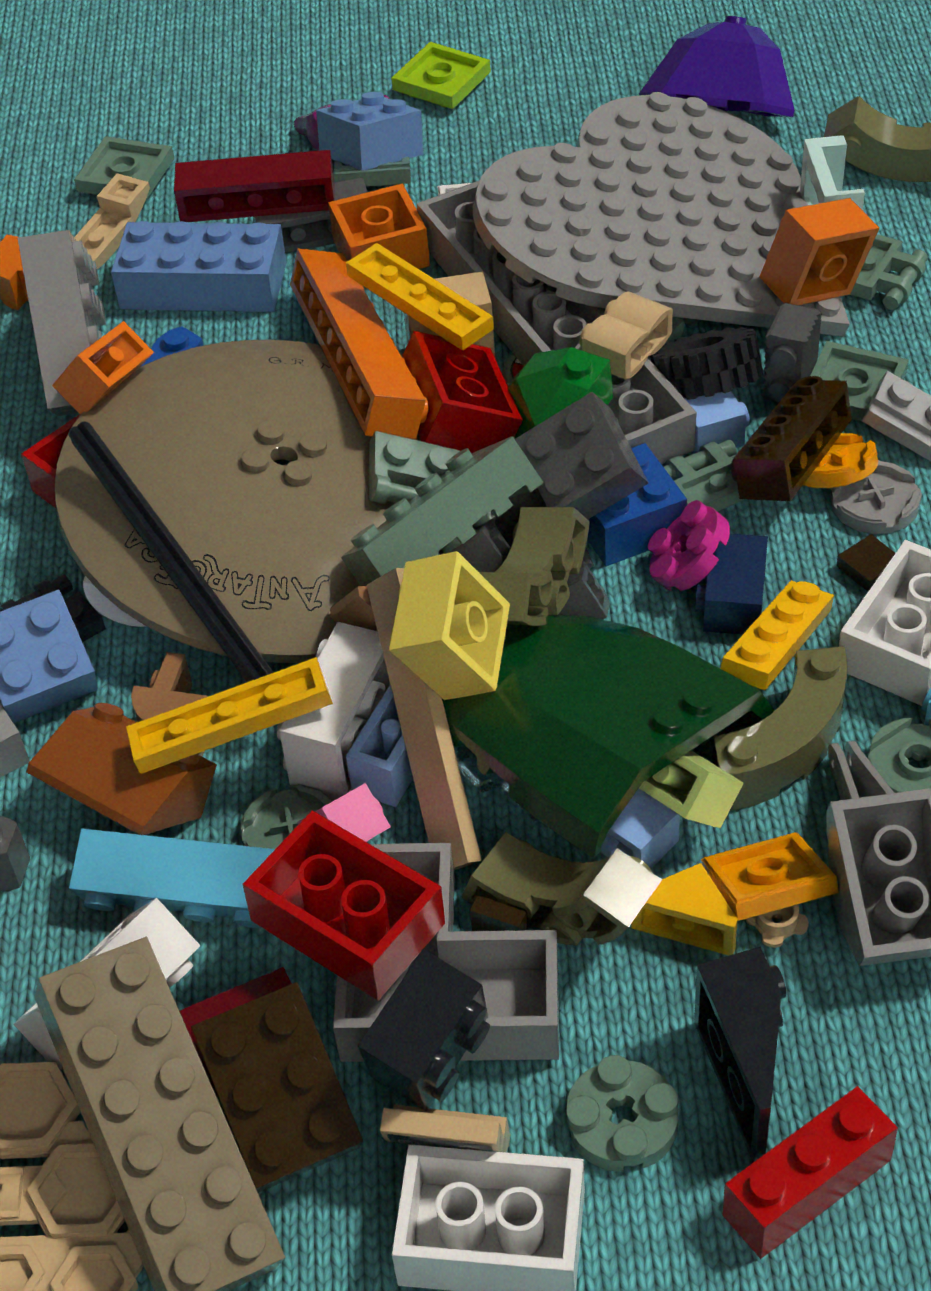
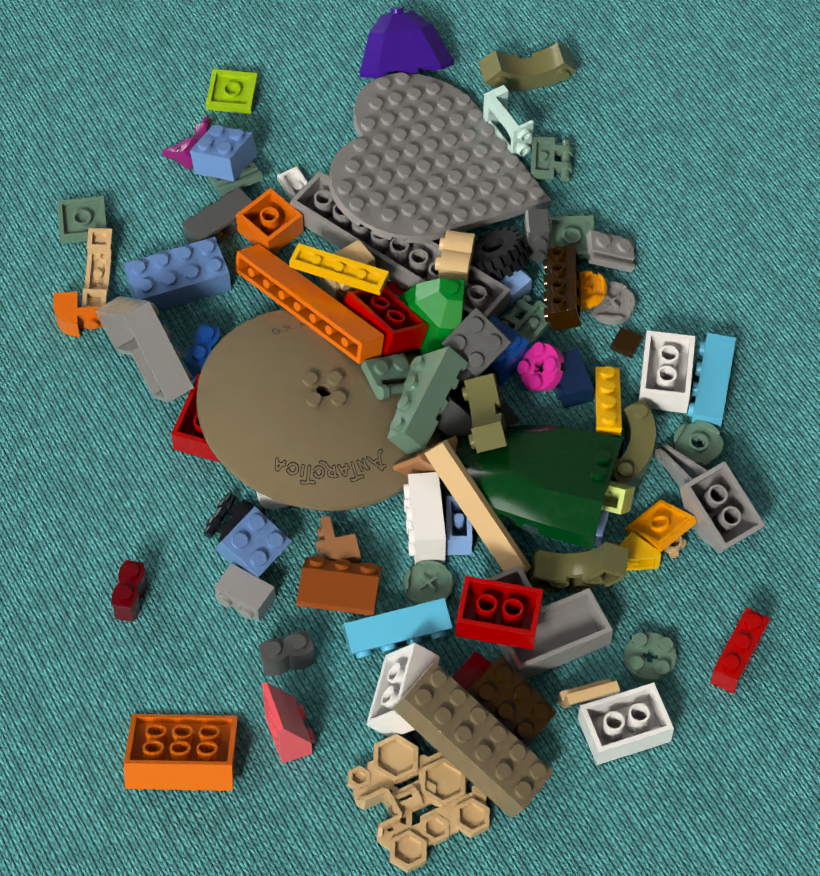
camera: 30 degrees left, 10 degrees up
(102, 367) = (196, 372): orange slope -> none
(169, 553) = (308, 470): black axle -> none
(228, 715) = (389, 542): yellow plate -> none
(254, 186) = (187, 216): dark red brick -> none
(357, 813) = (455, 571): bright pink brick -> none
(426, 1031) = (569, 654): black brick -> none
(449, 626) = (482, 463): light yellow brick -> none
(496, 916) = (554, 593): dark brown tile -> none
(739, 1029) = (689, 605): black slope -> none
(818, 251) = (526, 168): orange brick -> none

